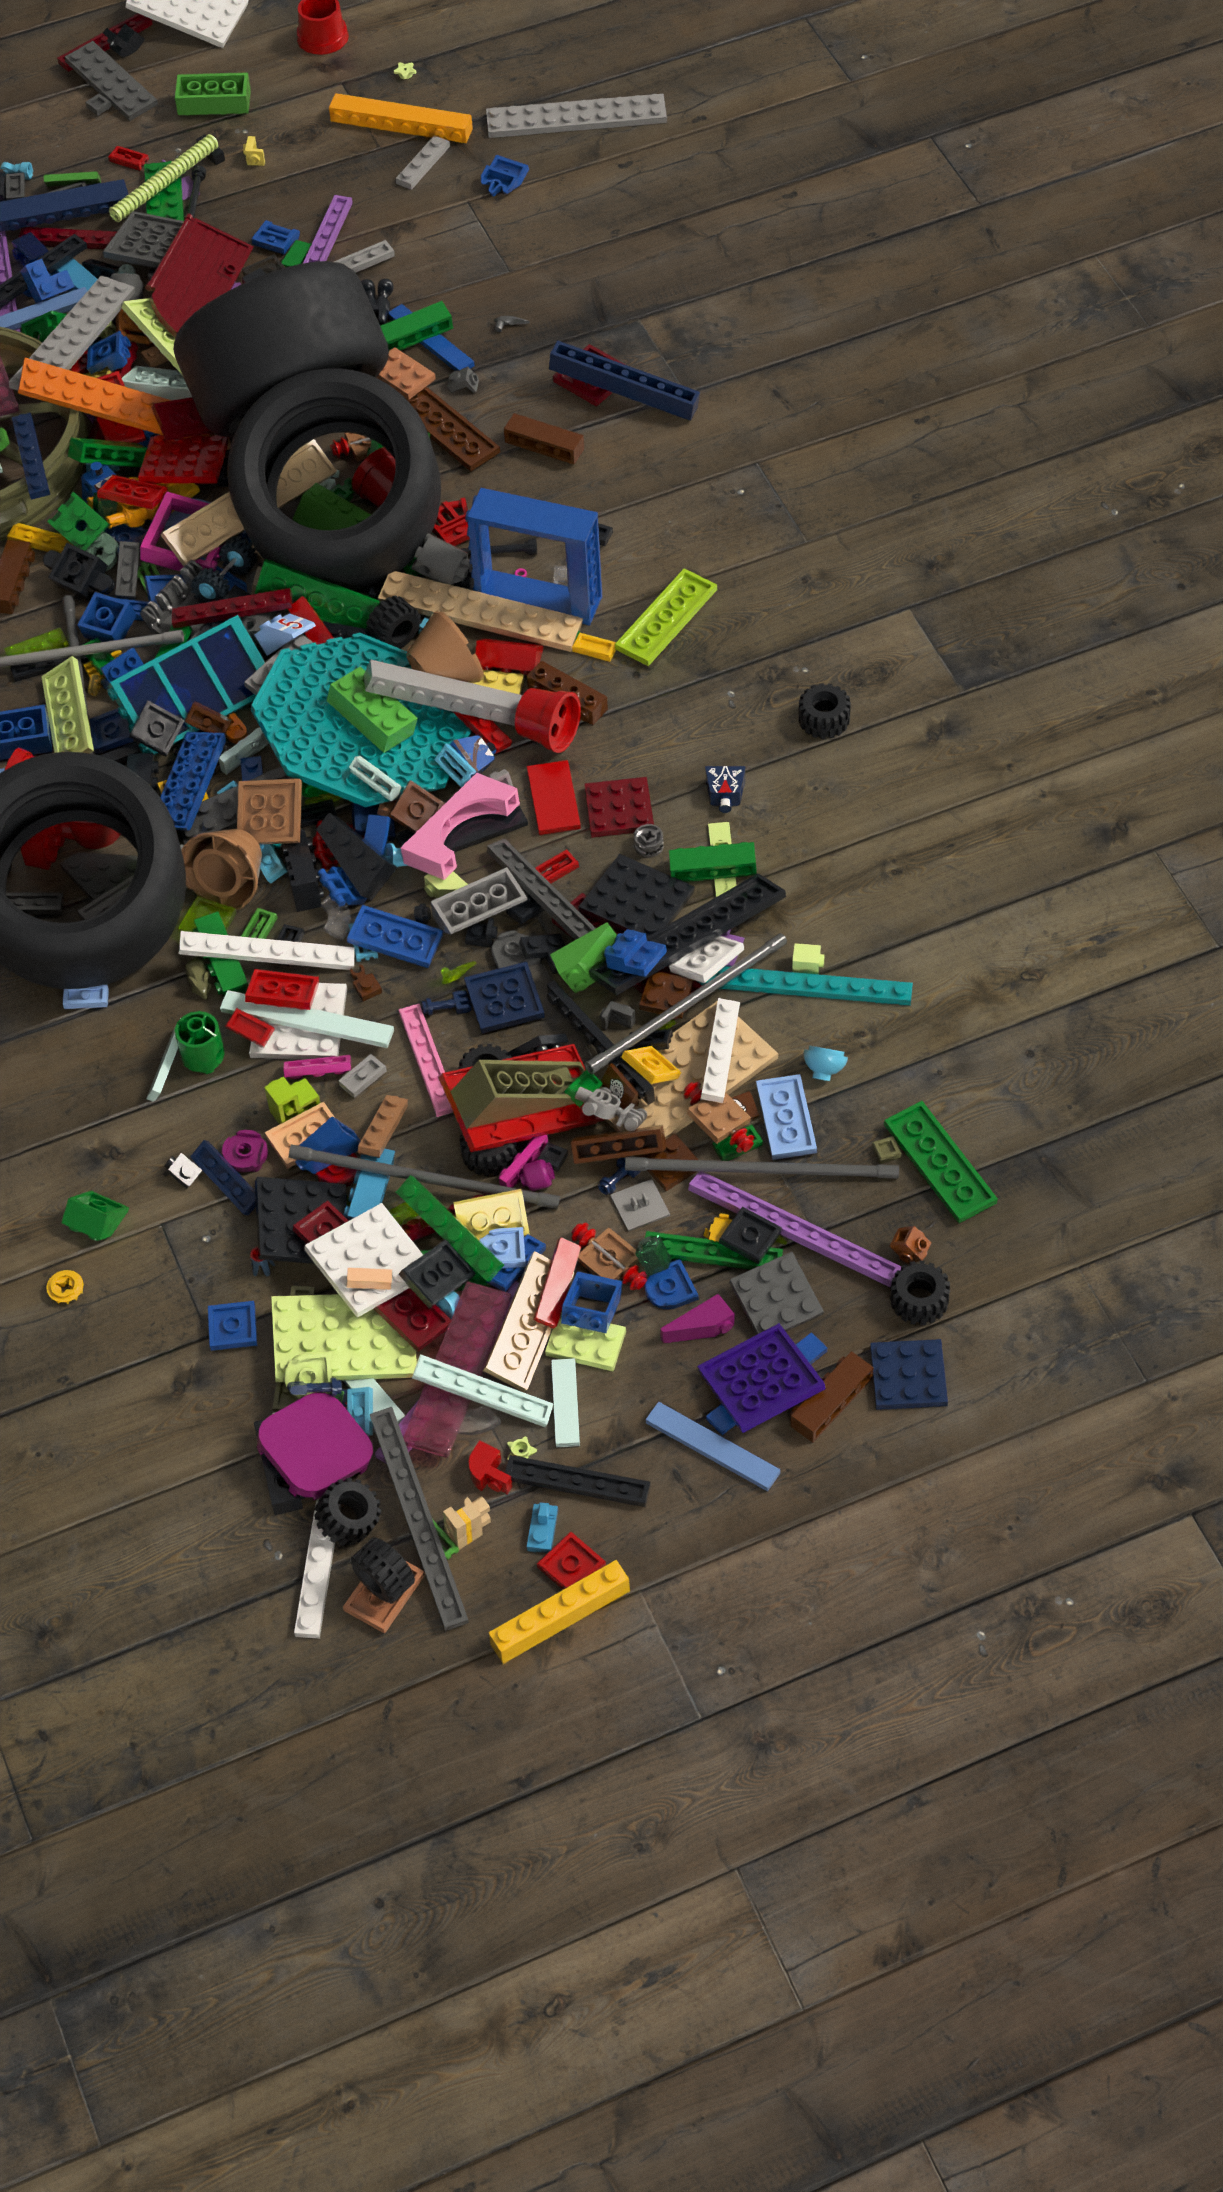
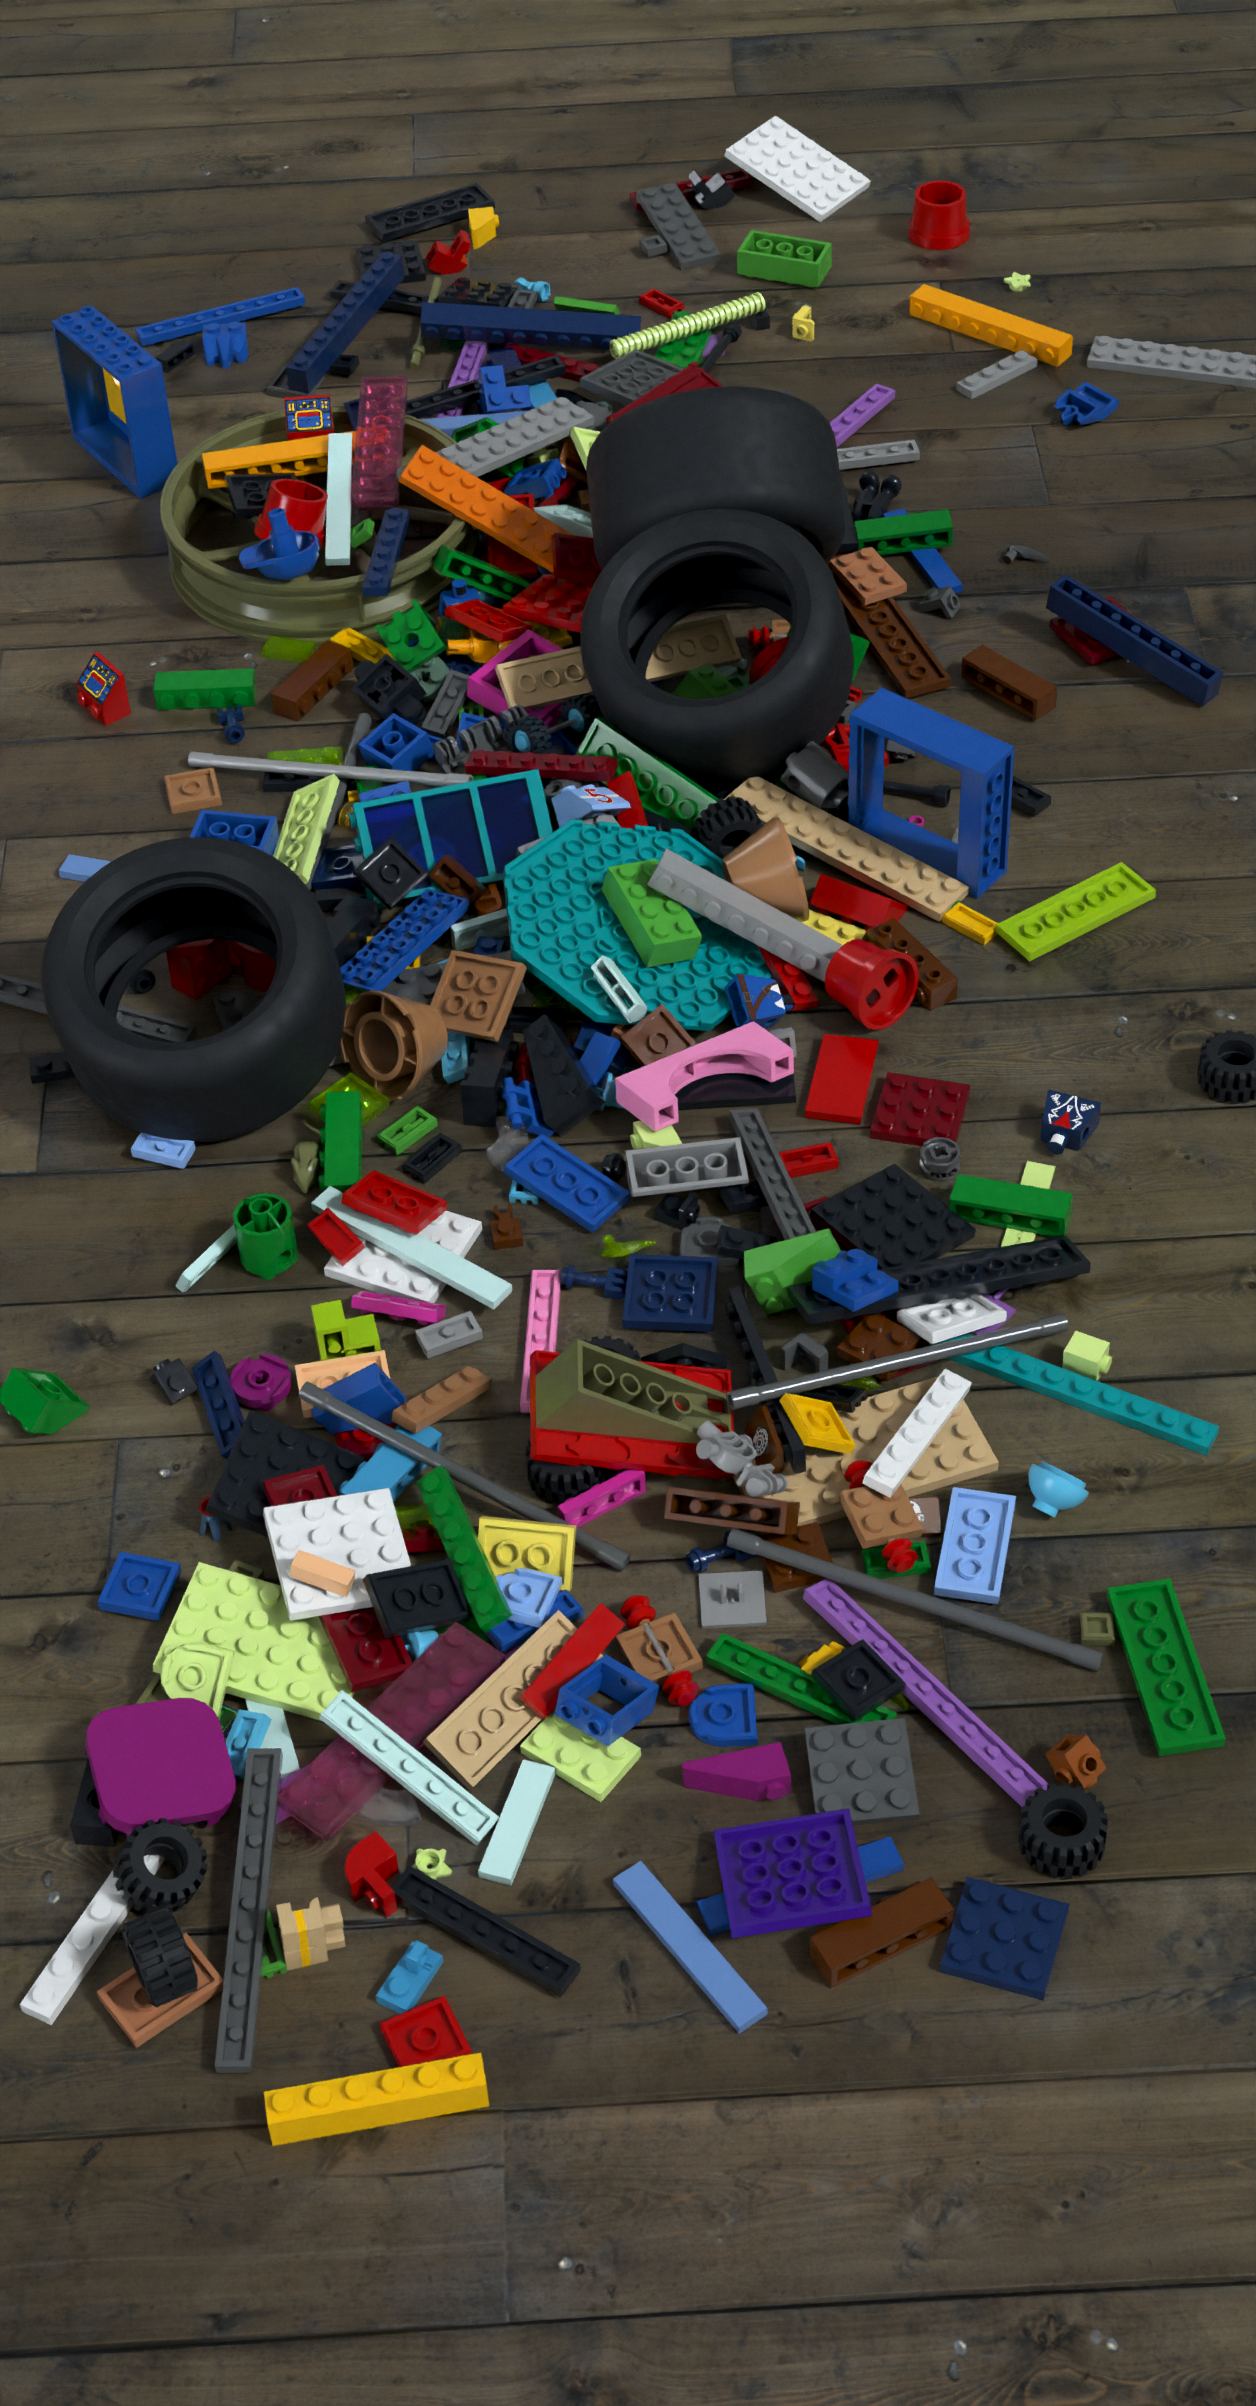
camera: 20 degrees right, 10 degrees down
(266, 950) = (399, 1153): white plate -> none
(302, 1388) = (175, 1686): dark blue hinge -> none
(466, 775) = (732, 1001): medium azure tile -> none
(537, 1175) = (612, 1519): magenta head -> none
(555, 1155) = (643, 1503): black plate -> none
(585, 1080) = (723, 1418): green tile -> none
(653, 1255) = (715, 1665): clear green brick -> none

